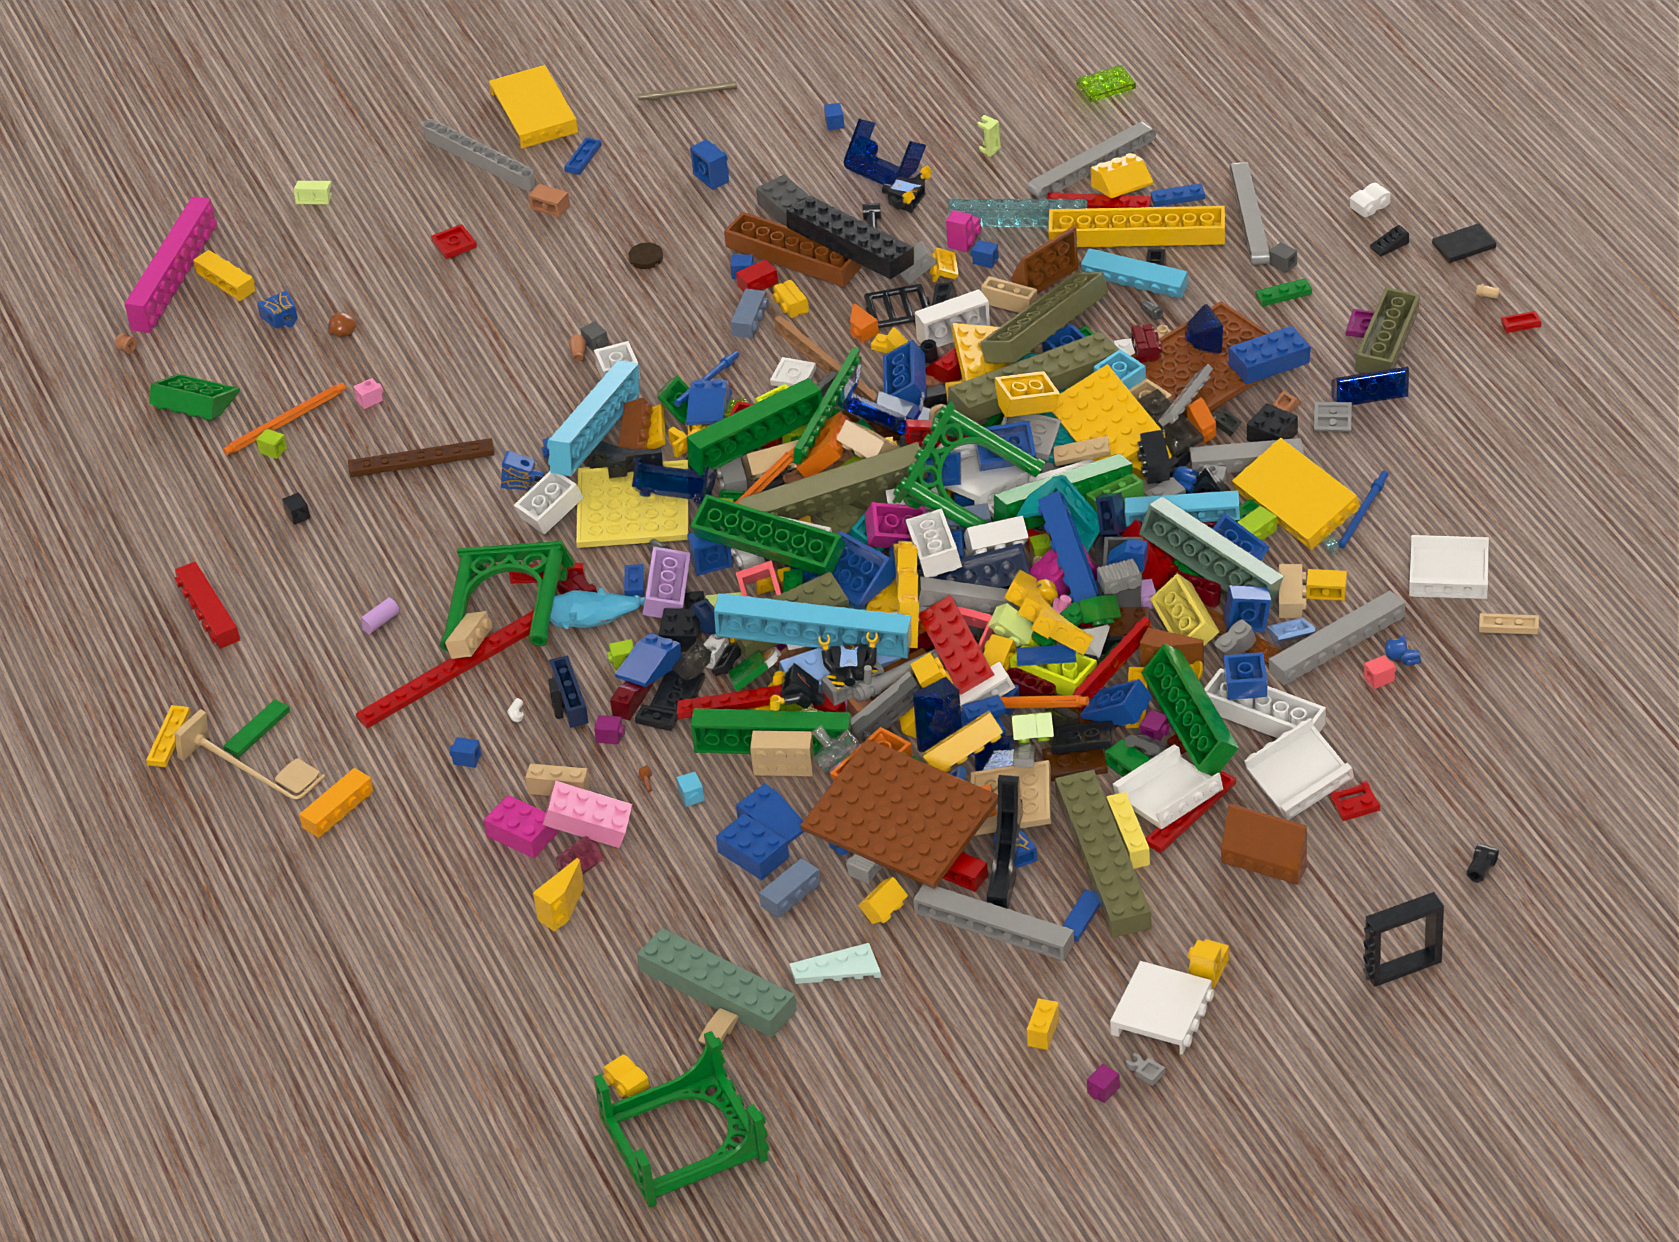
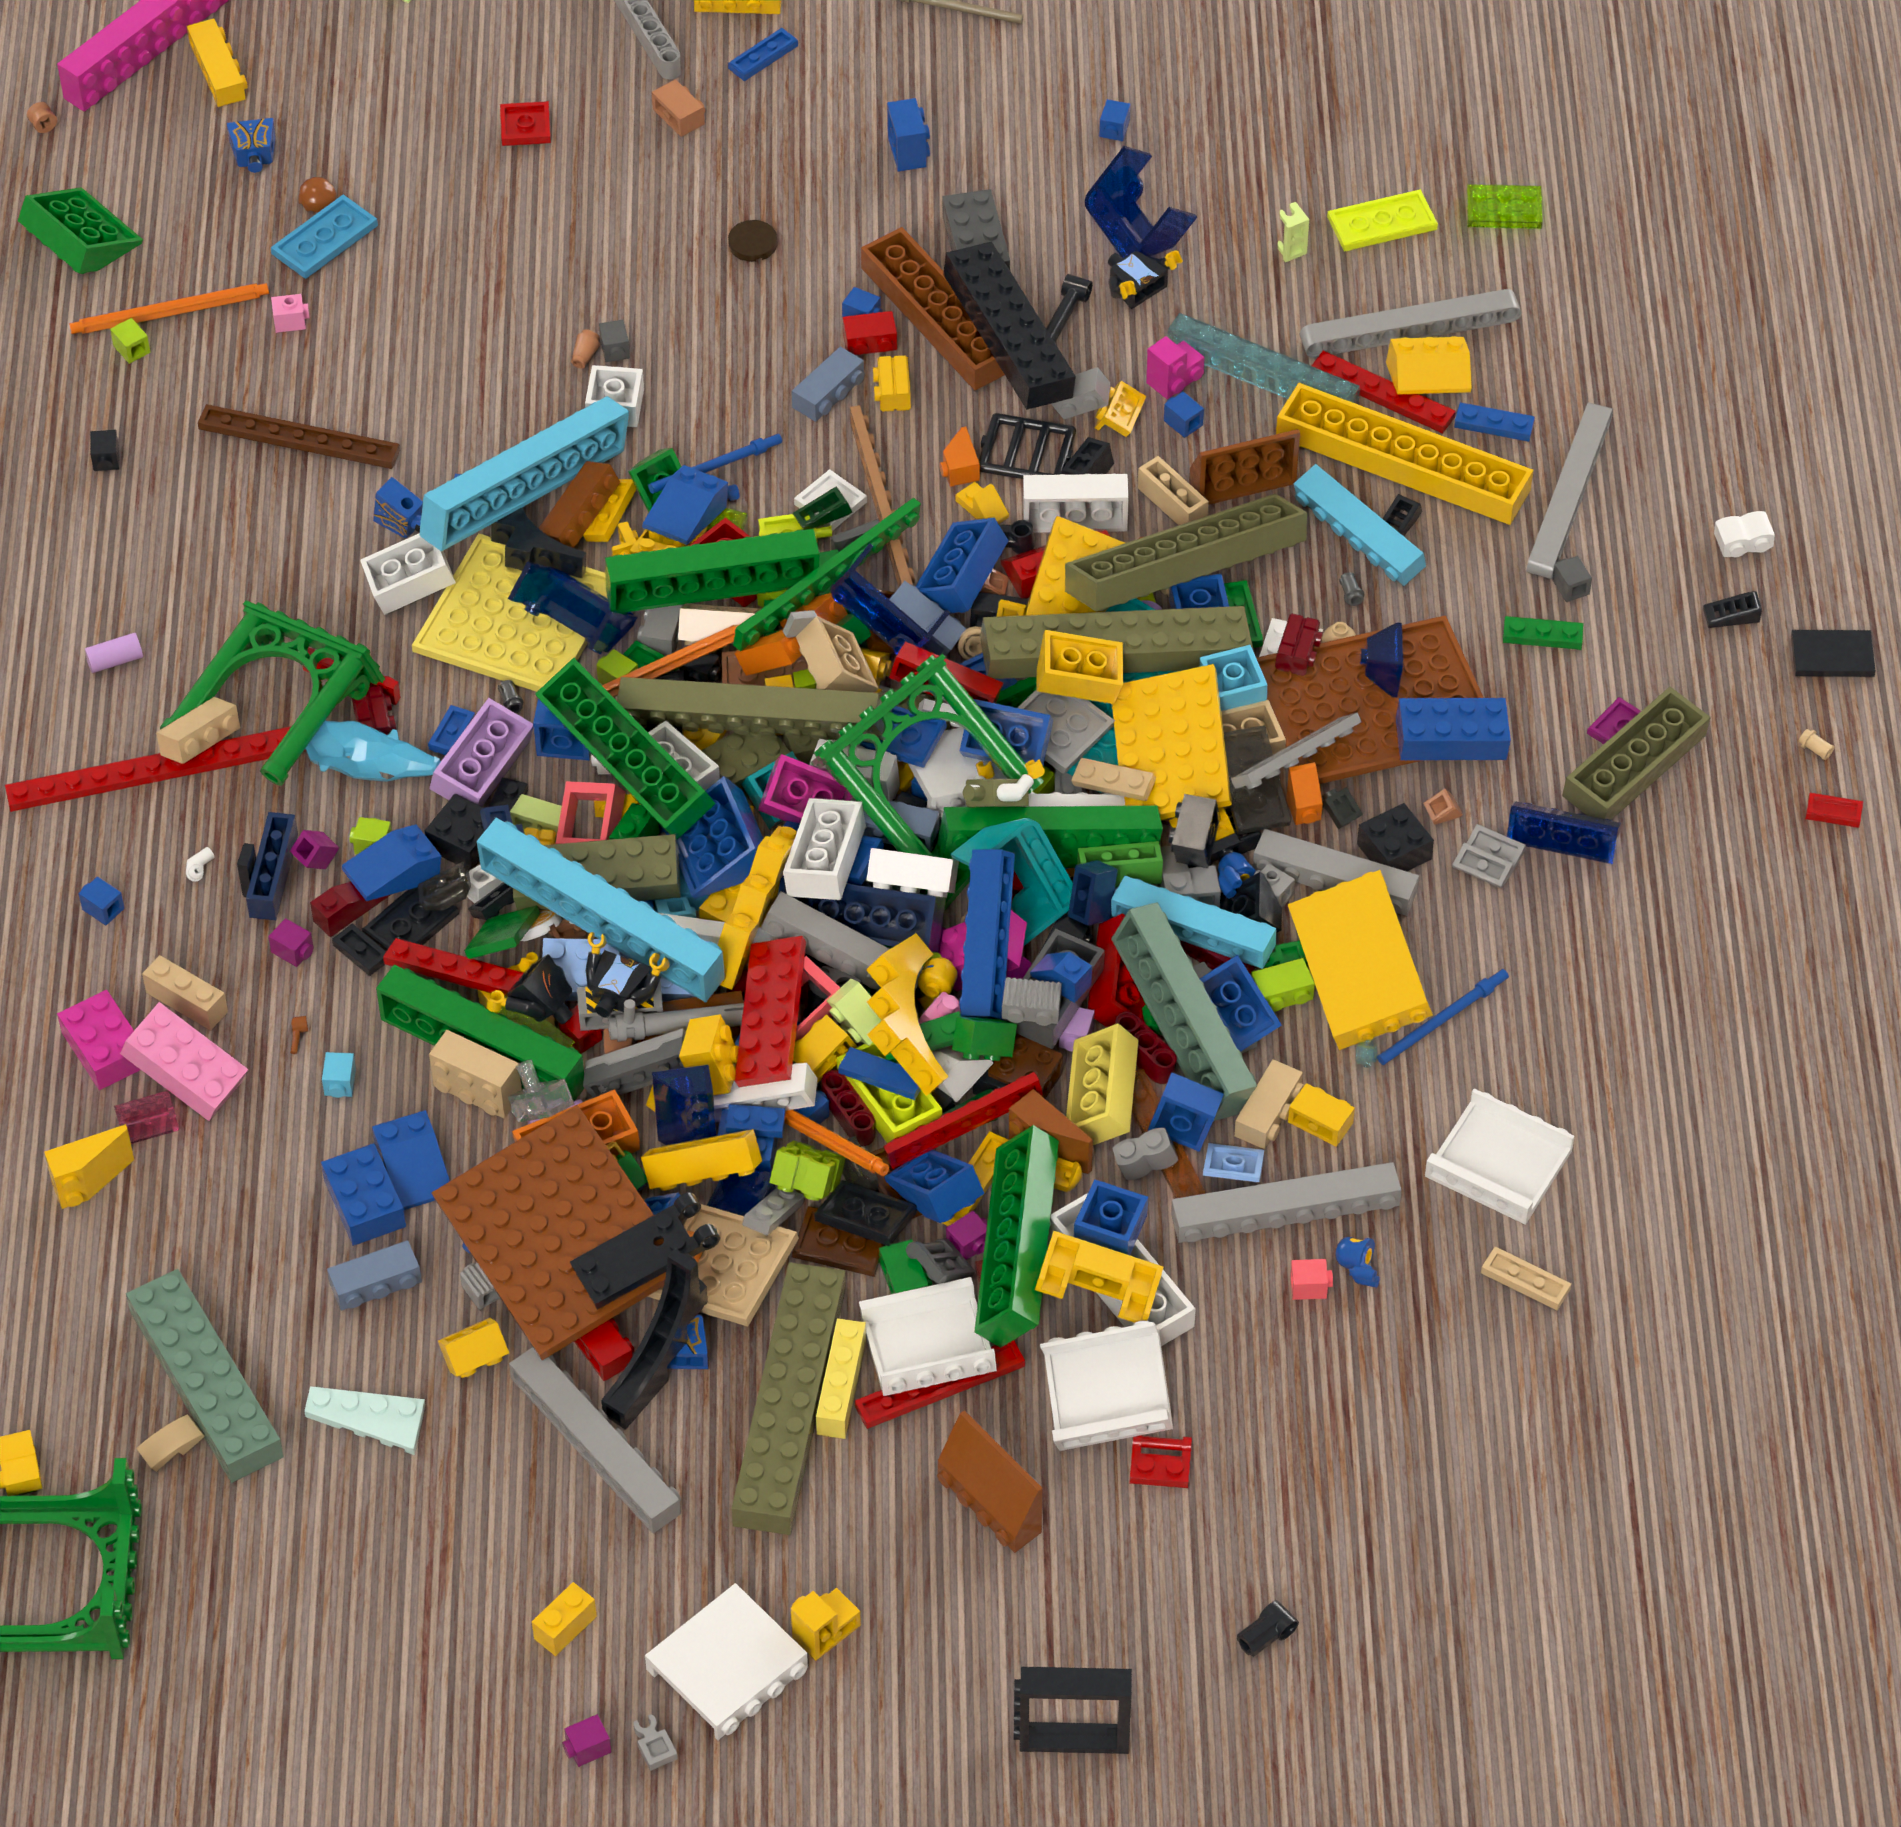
camera: 20 degrees right, 10 degrees up
(362, 345) = (324, 236): none -> dark azure plate
(590, 672) = (314, 849): none -> magenta brick
(797, 373) = (830, 507): none -> dark green slope
(834, 428) = (797, 622): none -> light grey tile
(961, 803) = (634, 1259): none -> black hinge
(1023, 472) = (989, 792): none -> torso
(1035, 115) = (1382, 220): none -> neon yellow tile
(1082, 913) = (710, 1477): blue tile -> none
(1259, 704) = (1100, 1271): none -> yellow bracket

